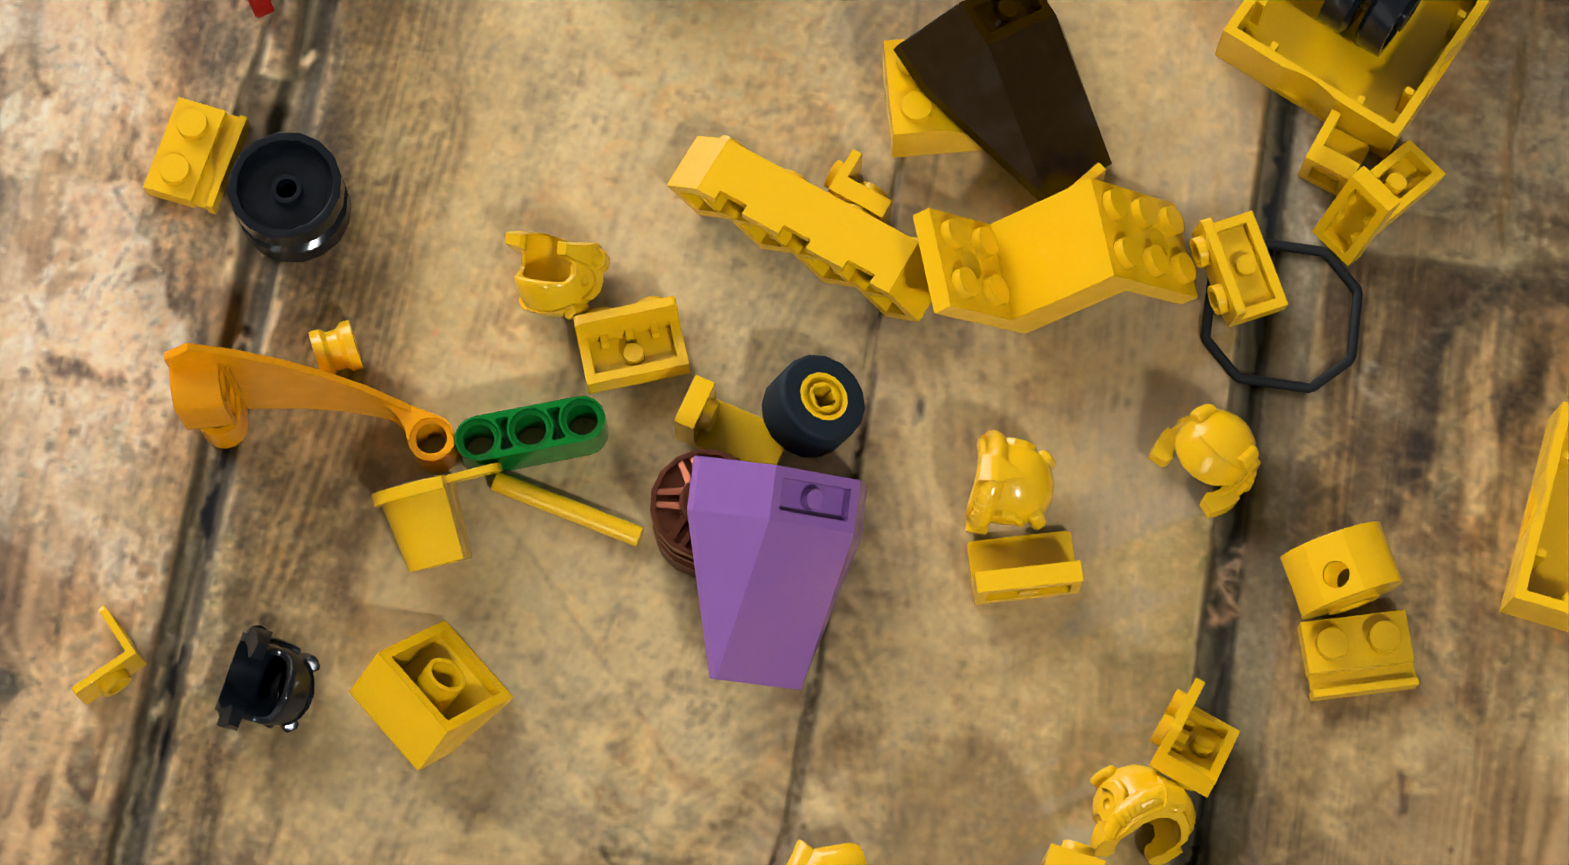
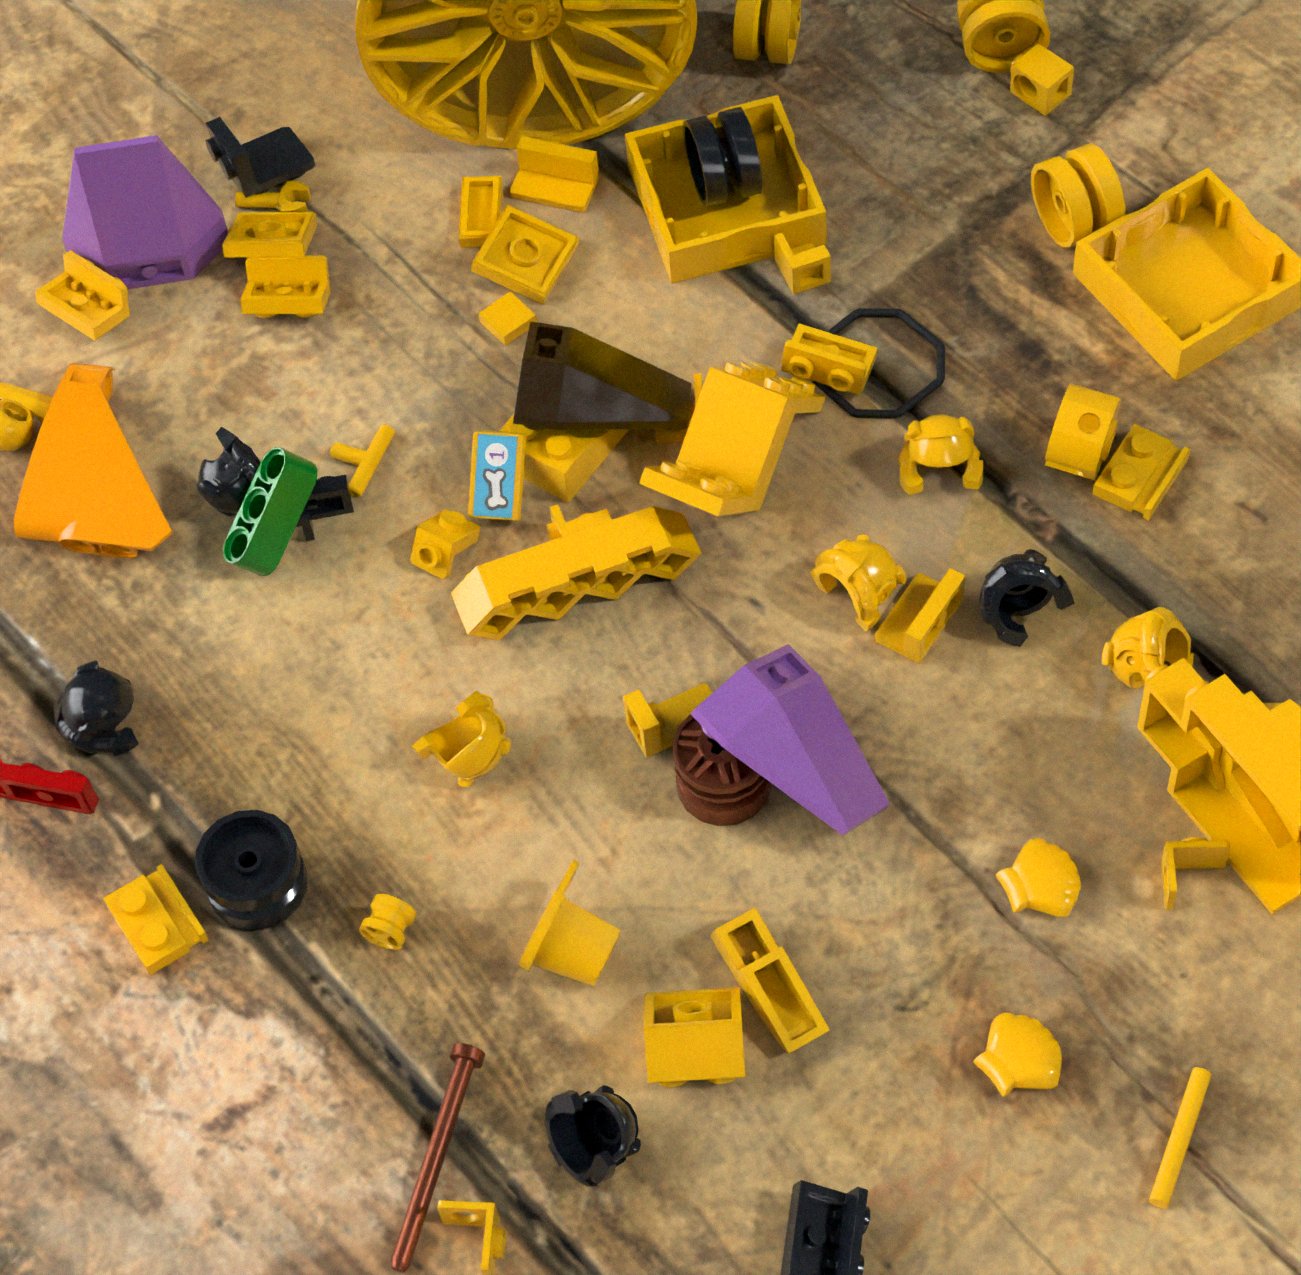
camera: 45 degrees left, 15 degrees down
(159, 564) = (466, 1059): none -> copper bar
(220, 385) = (372, 967): light orange panel -> none
(532, 719) = (769, 981): none -> yellow slope
(553, 417) = (565, 820): green beam -> none
(567, 509) = (635, 858): yellow bar -> none
(631, 344) = (557, 734): yellow bracket -> none
(753, 82) = (440, 540): none -> yellow bracket
(813, 406) = (701, 652): black wheel -> none
(848, 74) = (496, 475): none -> slope
(1120, 637) = (1019, 588): none -> black helmet
(1191, 742) = (1125, 592): yellow bracket -> none
(1375, 200) = (855, 260): yellow bracket -> none

